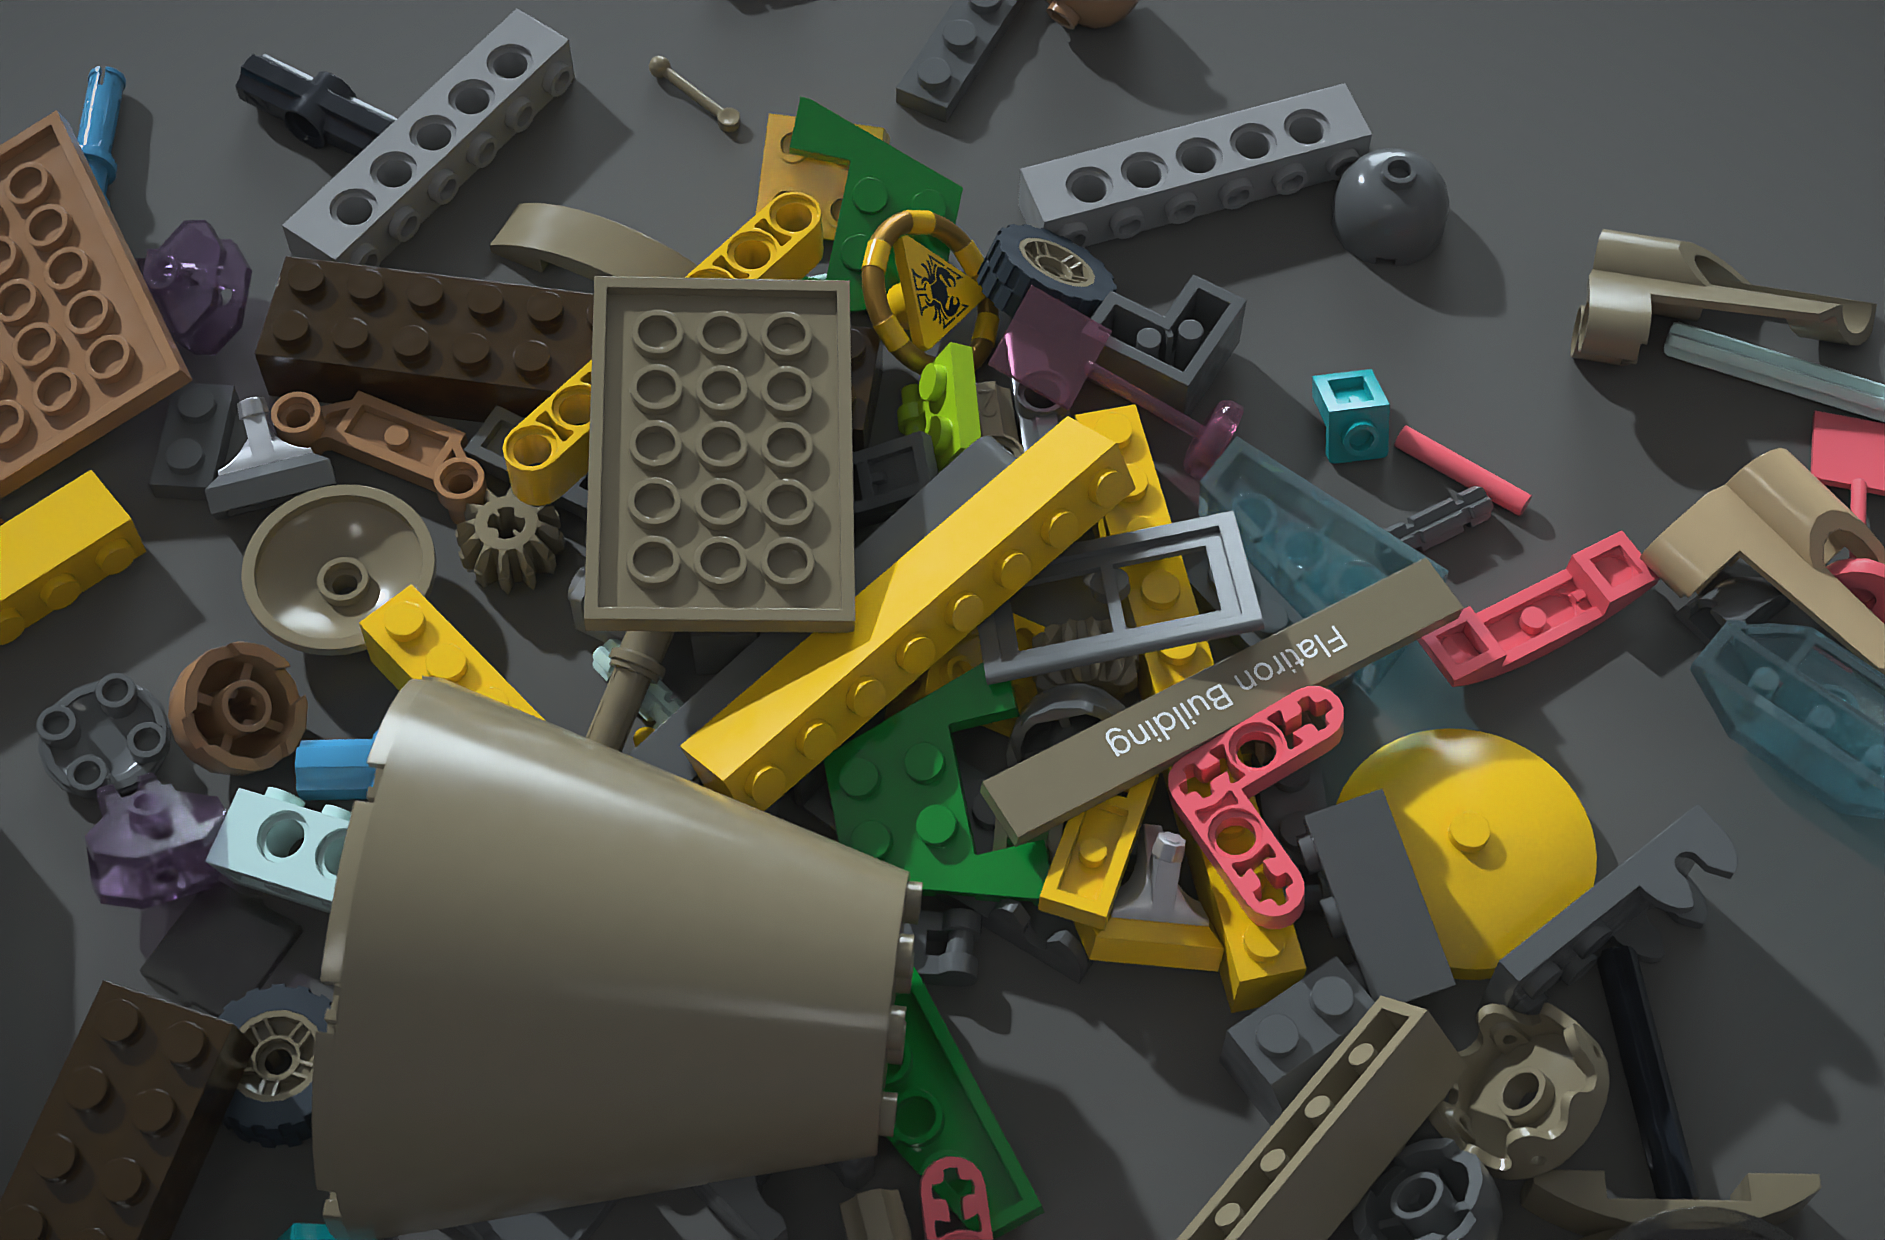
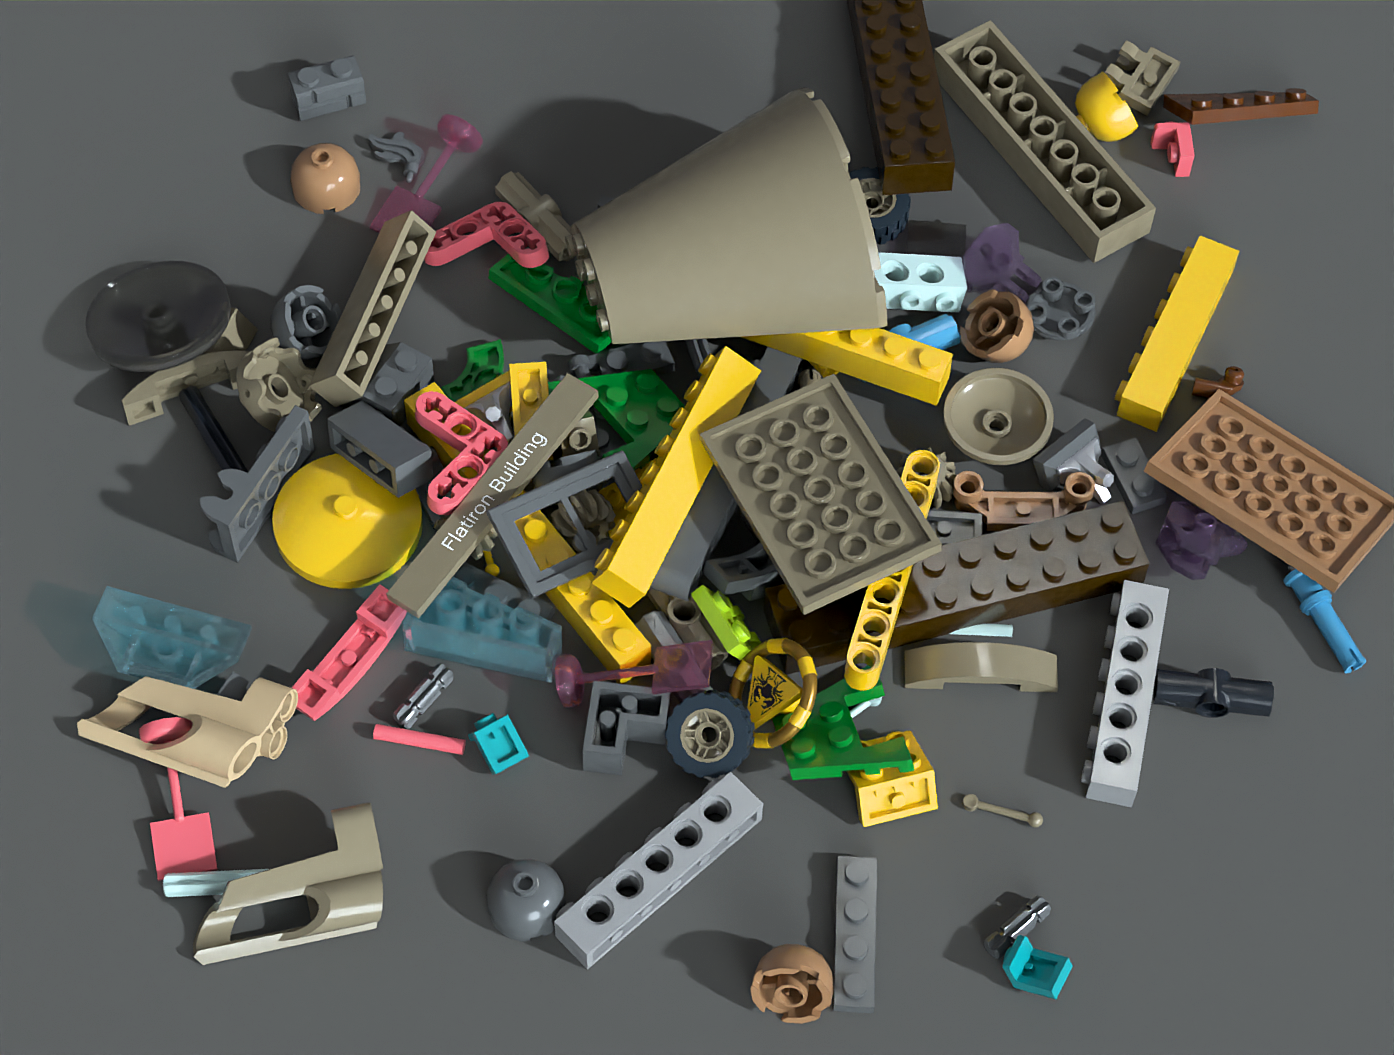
camera: 155 degrees right, 0 degrees up
(1142, 1022) = (482, 366): none -> green tile

